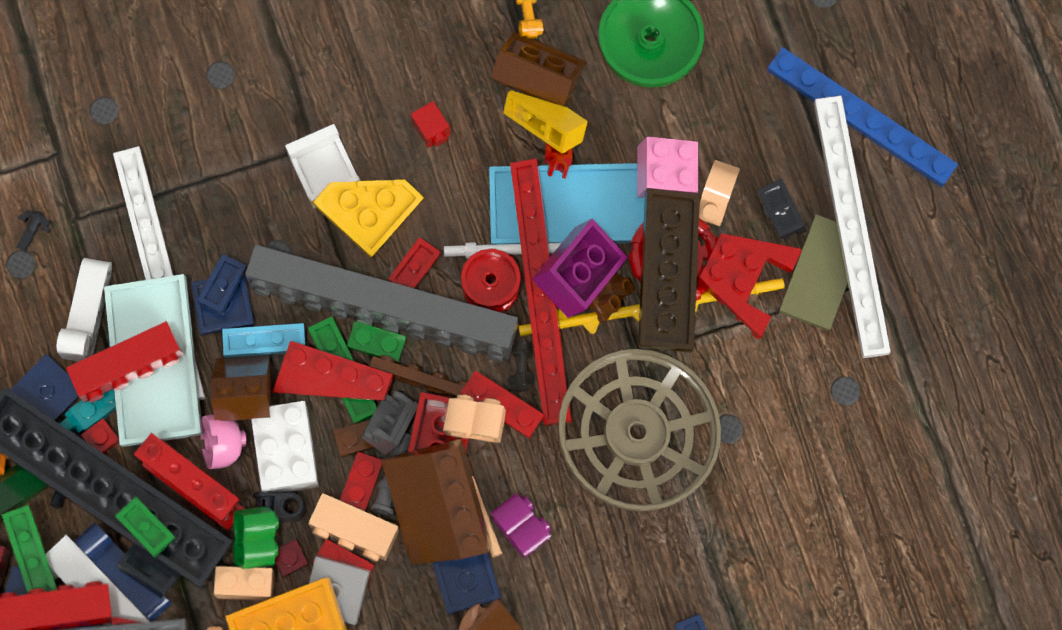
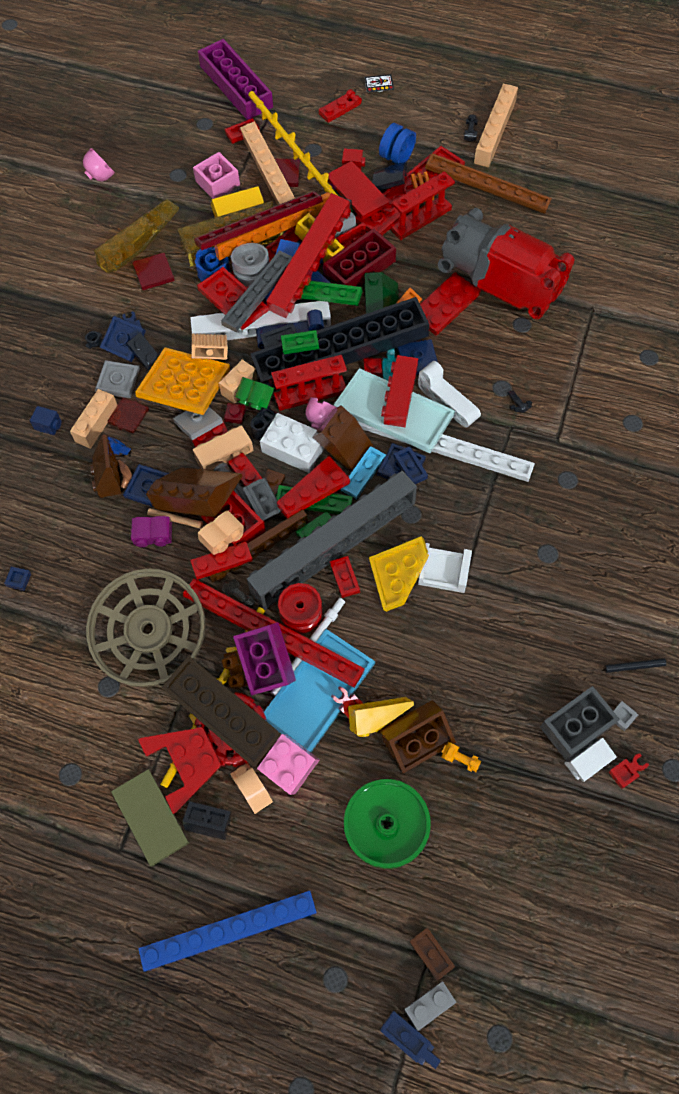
camera: 130 degrees right, 10 degrees down
(430, 125) = (426, 644): red brick -> none
(852, 227) = (162, 857): white plate -> none

